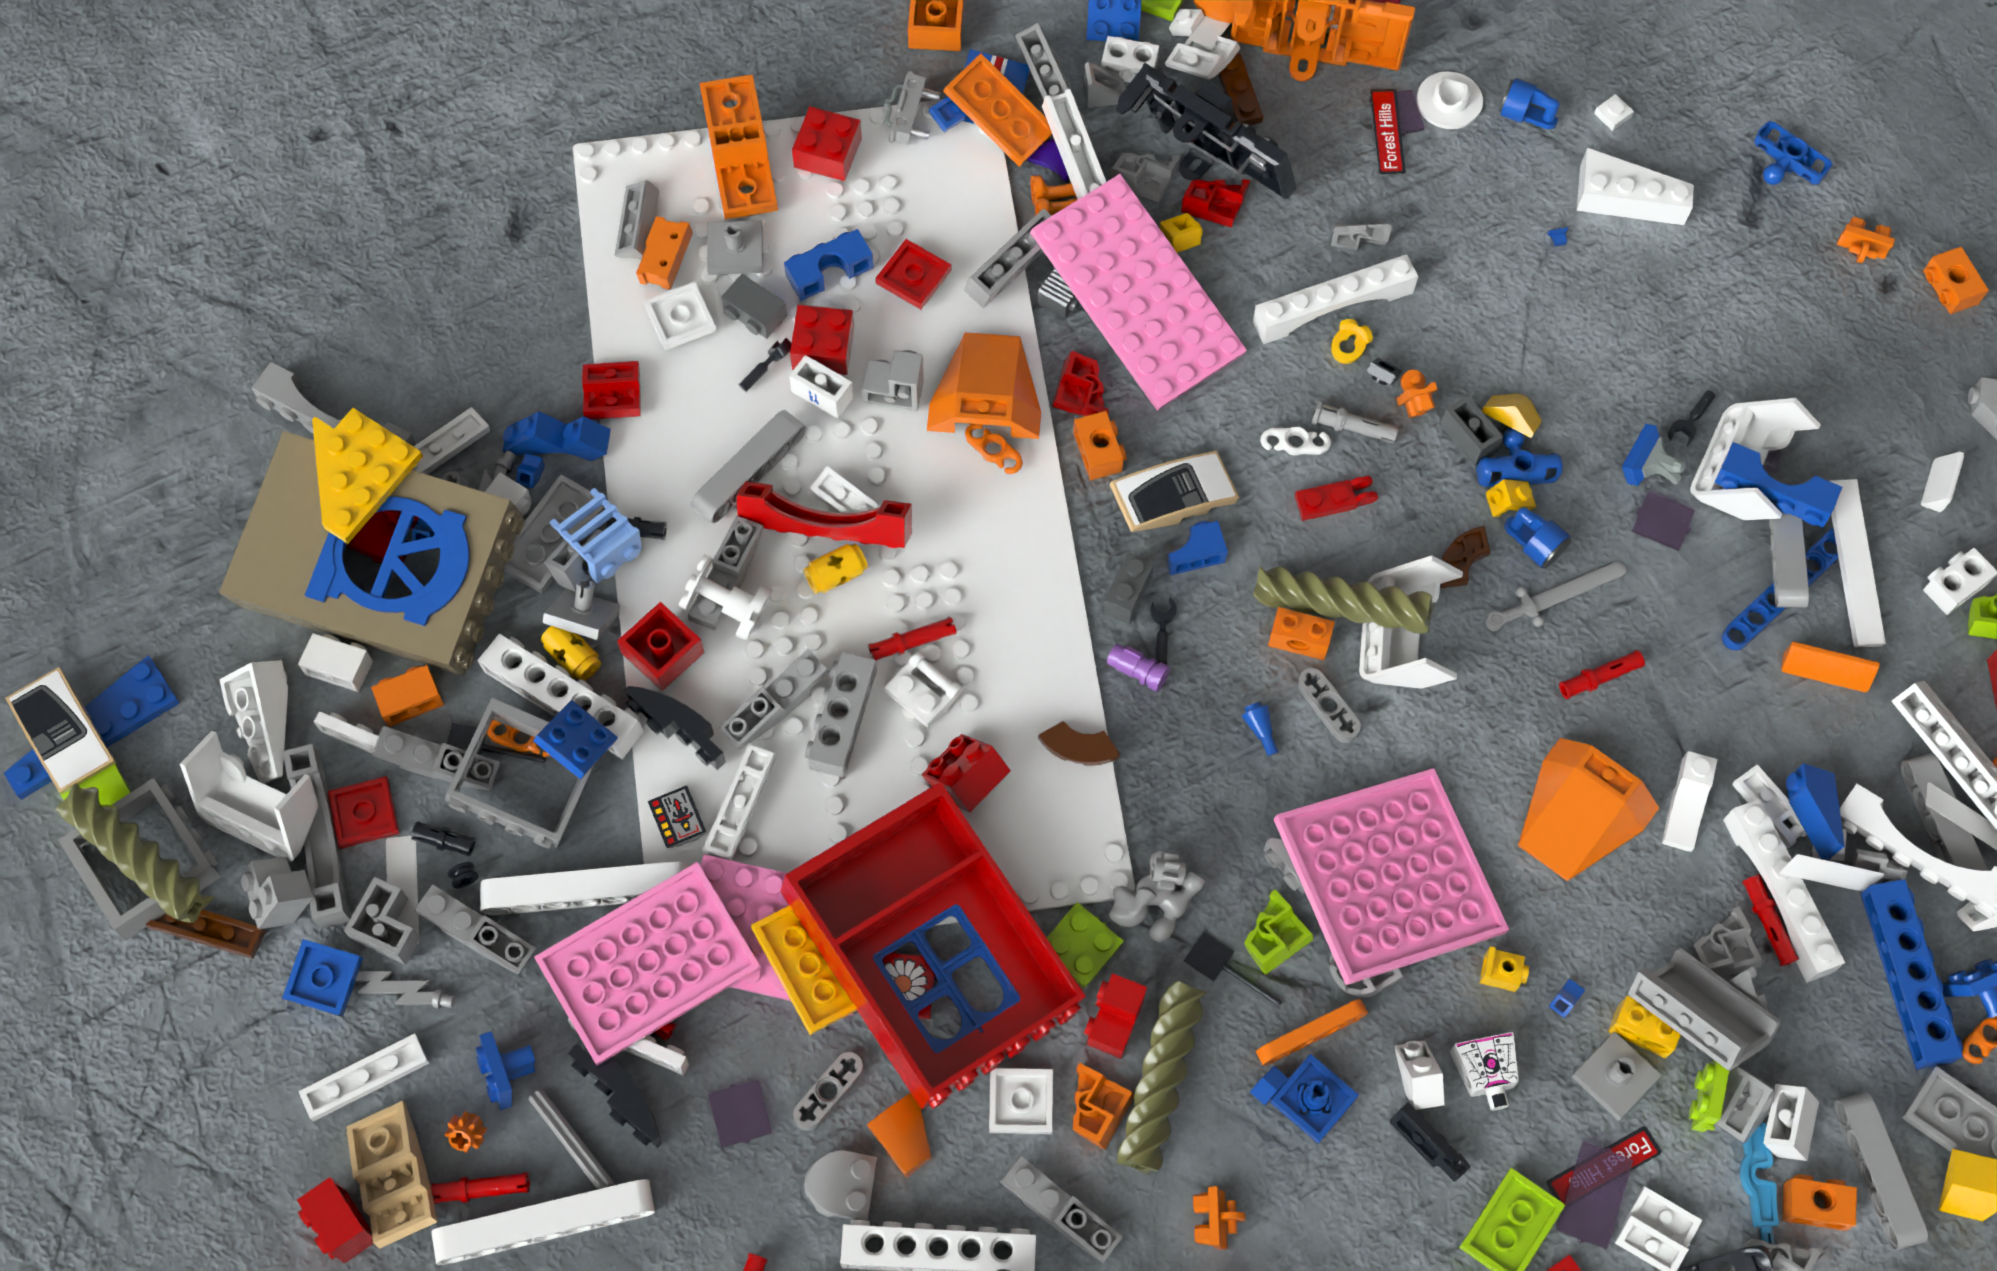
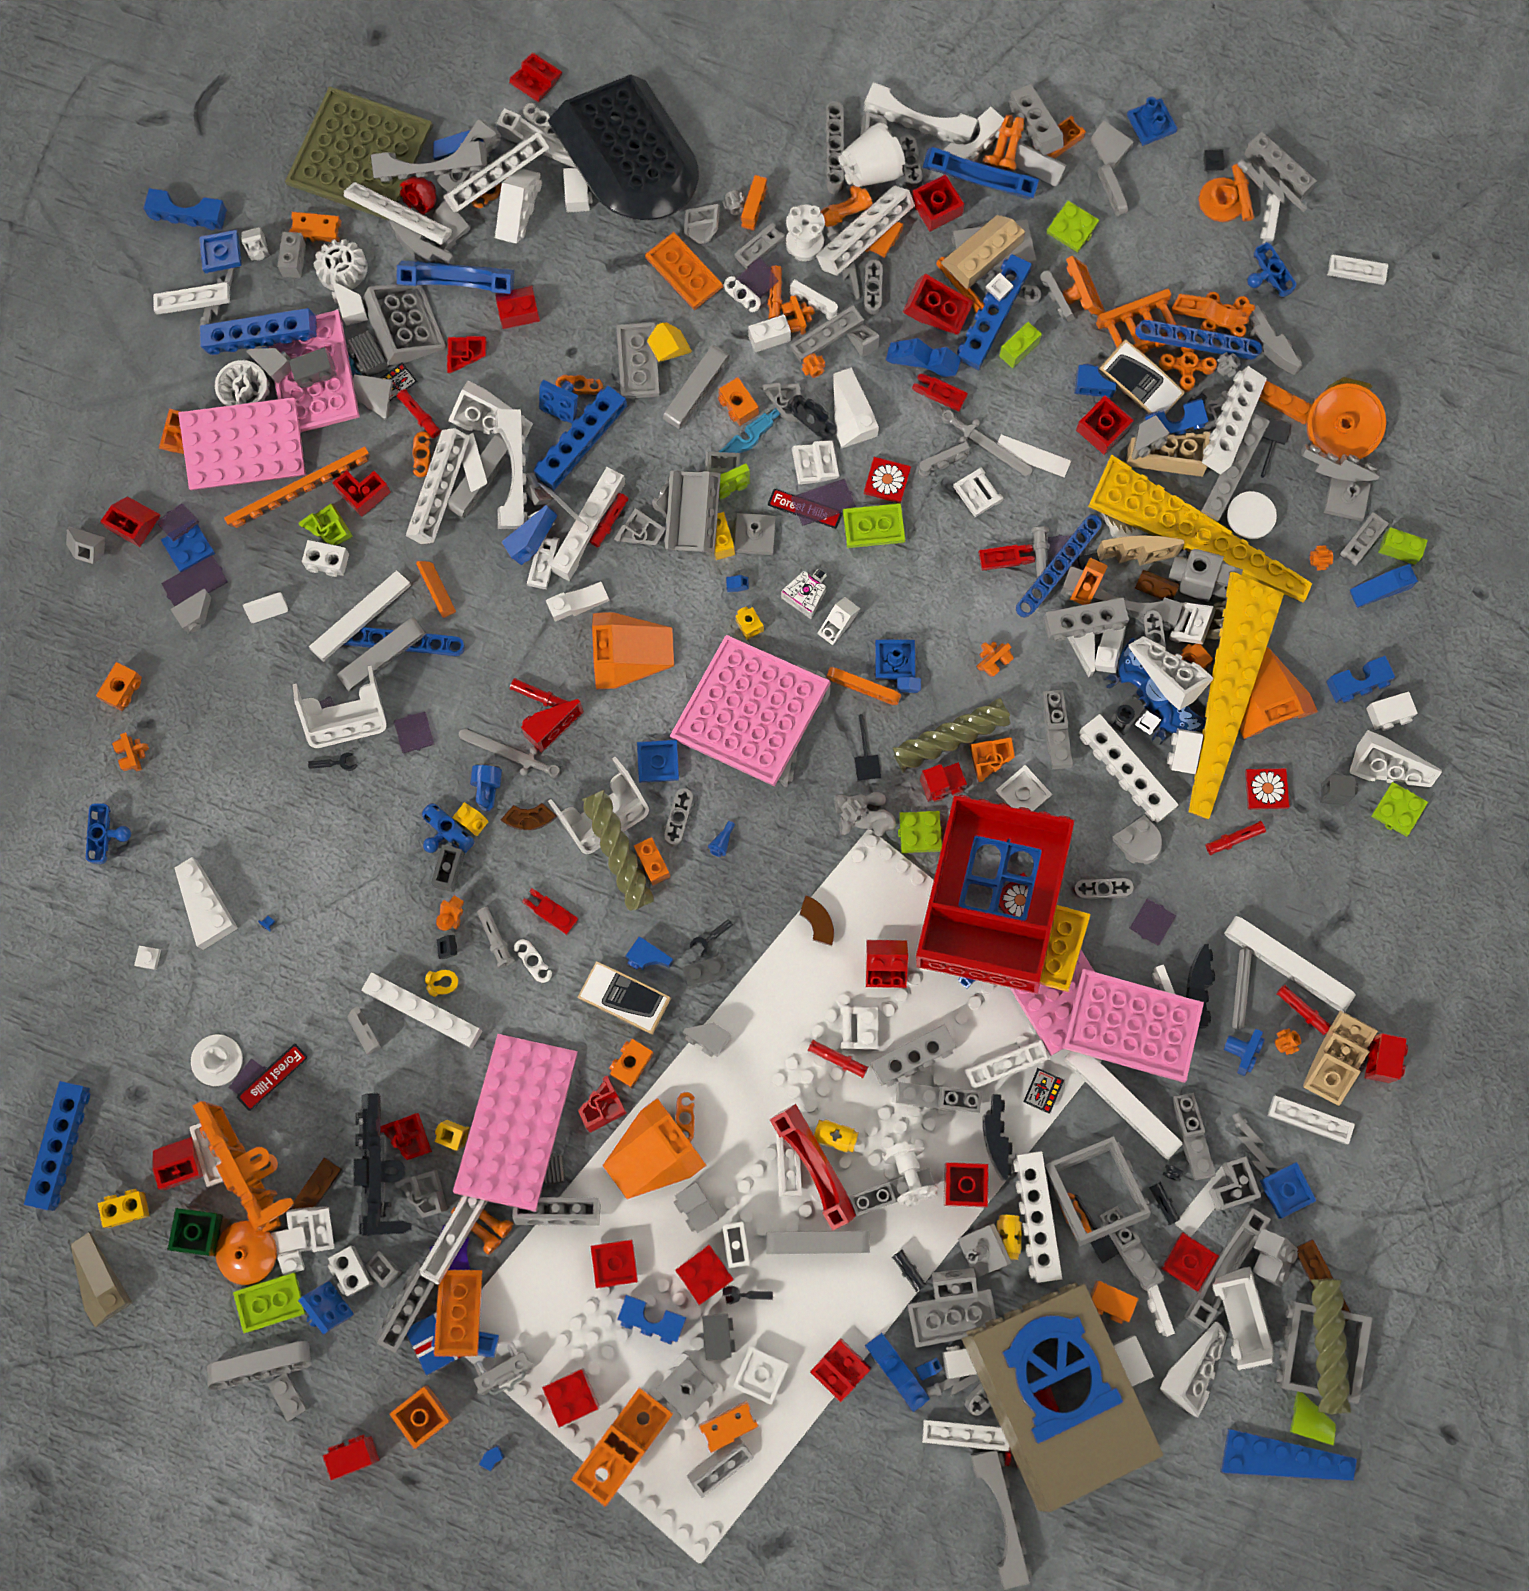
camera: 130 degrees left, 10 degrees up
(60, 730) = (1307, 1469): slope -> none
(357, 470) = (1034, 1440): yellow wing -> none
(575, 739) = (1062, 1170): blue plate -> none
(608, 549) = (936, 1268): light blue plate -> none
(842, 52) = (491, 1457): none -> blue piece
(903, 1134) = (1091, 833): orange slope -> none
(1054, 532) = (708, 1036): none -> light grey slope
(1137, 666) = (745, 929): medium lavender axle -> none
(1276, 935) = (827, 743): lime slope -> none
(1414, 734) = (658, 761): none -> blue plate
(1429, 1142) = (868, 591): black hinge -> none
(1514, 411) = (414, 857): yellow slope -> none
(1518, 108) = (189, 1011): blue piece -> none
(1553, 642) = (549, 724): none -> red slope
(1649, 458) = (383, 763): piece -> none
(1791, 1122) = (710, 438): white brick -> none
(1809, 501) = (358, 703): blue arch -> none

